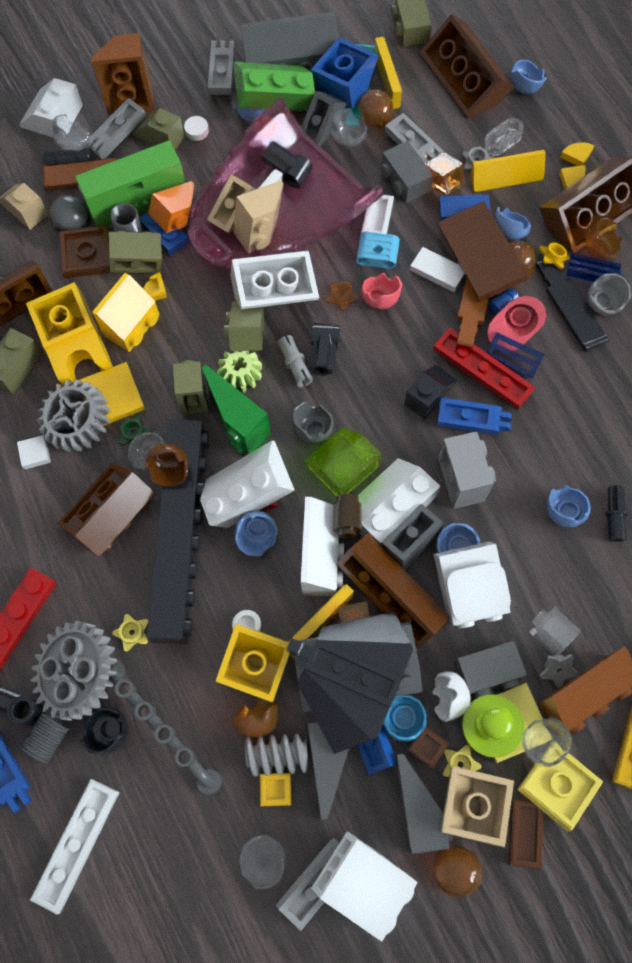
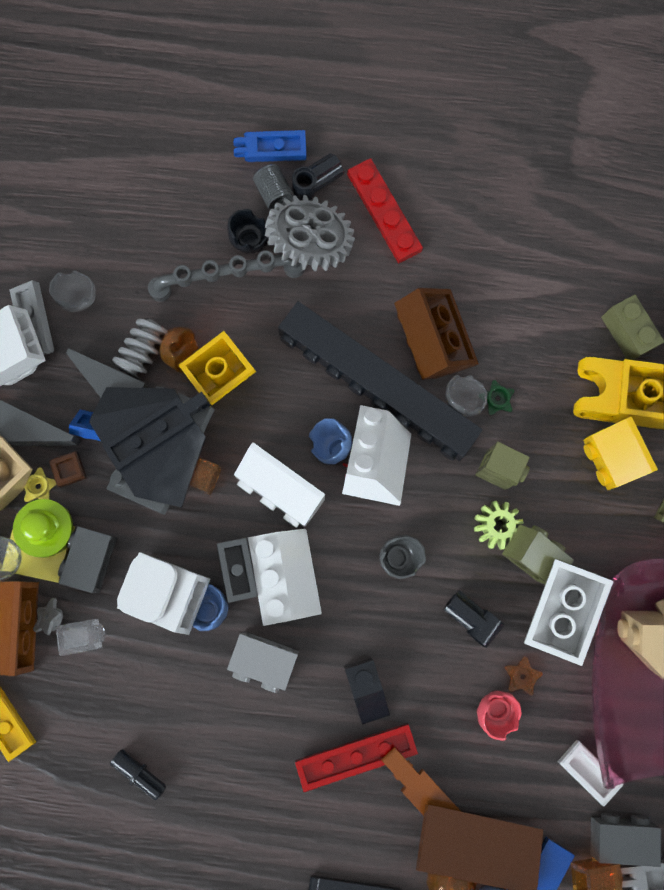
camera: 115 degrees right, 10 degrees up
(33, 452) = (530, 304): white tile -> none
(74, 846) = (182, 171): white tile -> none
(87, 418) = (553, 343): light grey gear -> none
(119, 390) = (546, 398): yellow tile -> none
(129, 624) = (321, 292): light yellow plate -> none
(155, 287) = (637, 499): yellow tile -> none
(167, 464) = (435, 398): reddish brown hair -> none
(241, 418) = (449, 488): green slope -> none
(248, 619) = (260, 390): white tile -> none
(275, 789) = (116, 332): yellow tile -> none
(295, 361) = (476, 582): light grey pin -> none
(324, 615) = (222, 449): yellow tile -> none
(344, 461) = (350, 560): clear neon green slope -> none
(347, 515) = (288, 523): dark brown brick -> none
(377, 250) = (550, 745): medium azure piece -> none
(392, 588) = (202, 522): reddish brown brick -> none
(405, 718) = (94, 463): dark azure hair -> none
(437, 269) = (491, 791): white tile -> none
(453, 696) = (85, 513): white hair -> none
(472, 416) = (315, 710): blue hinge -> none
(498, 336) = (356, 807): clear blue tile -> none
(502, 300) = (411, 830): blue piece -> none
(518, 320) = (379, 824): coral piece -> none
(568, 507) = (172, 733): medium blue hair -> none

